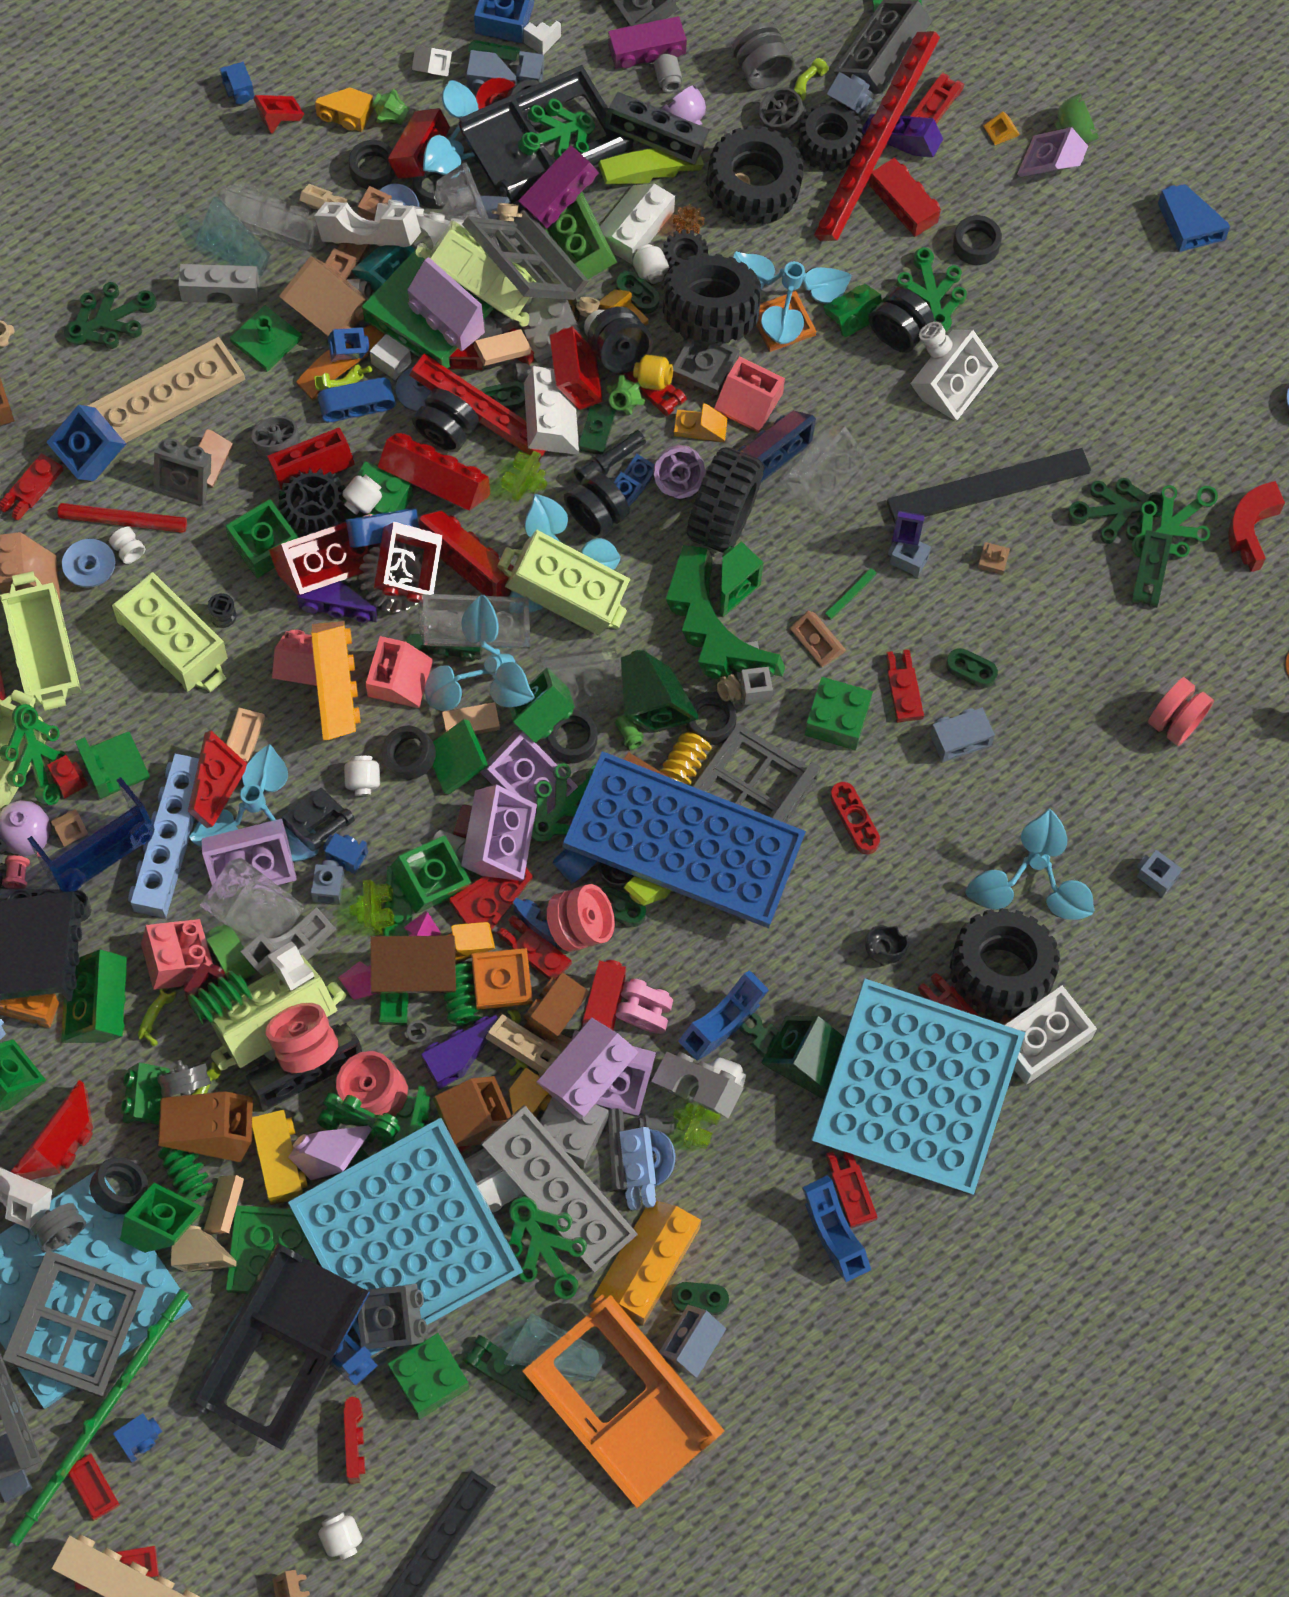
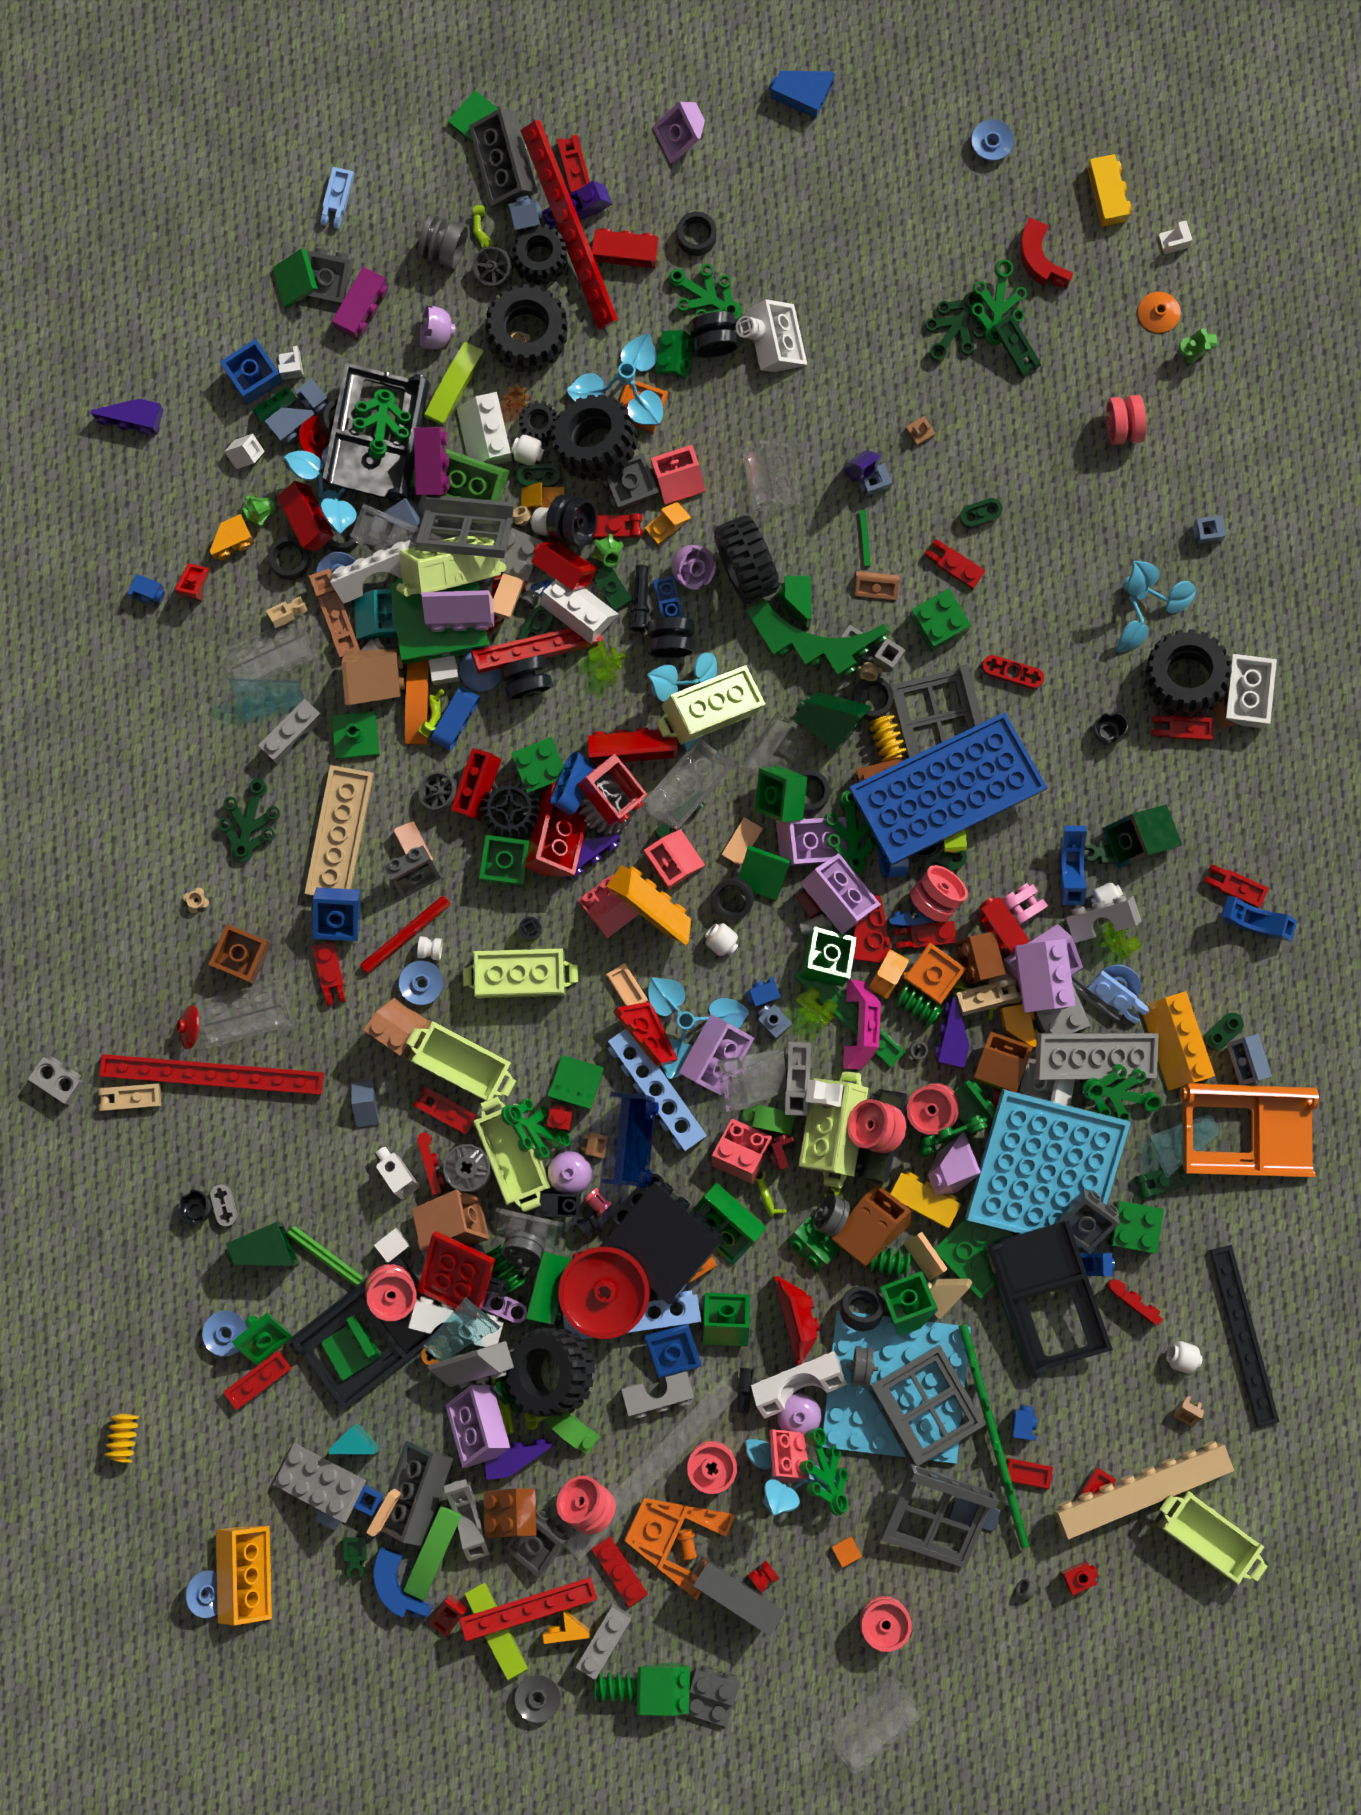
camera: 45 degrees left, 15 degrees up
(219, 997) = (805, 1152): green piece -> none
(312, 813) = (718, 991): black plate -> none
(342, 225) = (323, 618): white arch -> none
(352, 336) = (411, 697): blue brick -> none
(362, 494) = (539, 777): white head -> none
(413, 964) = (883, 1019): reddish brown tile -> none
(434, 471) = (559, 718): red slope -> none
(507, 211) = (418, 509): tan plate -> none
(510, 681) = (757, 806): medium azure plant -> none
(632, 737) = (839, 755): bright green pin -> none
(653, 372) = (611, 520): yellow head -> none
(656, 128) = (436, 358): black brick -> none
(662, 1124) = (1099, 963): dark grey pin -> none
(668, 73) = (395, 310): light grey brick -> none
(782, 441) = (727, 489): dark blue slope -> none
(918, 1086) = (1219, 793): medium azure plate -> none
(962, 734) = (1020, 560): sand blue brick -> none
(992, 484) = (869, 388): black tile -> none
(1001, 128) = (629, 142): light orange slope -> none
(1076, 115) = (671, 91): bright green cylinder -> none

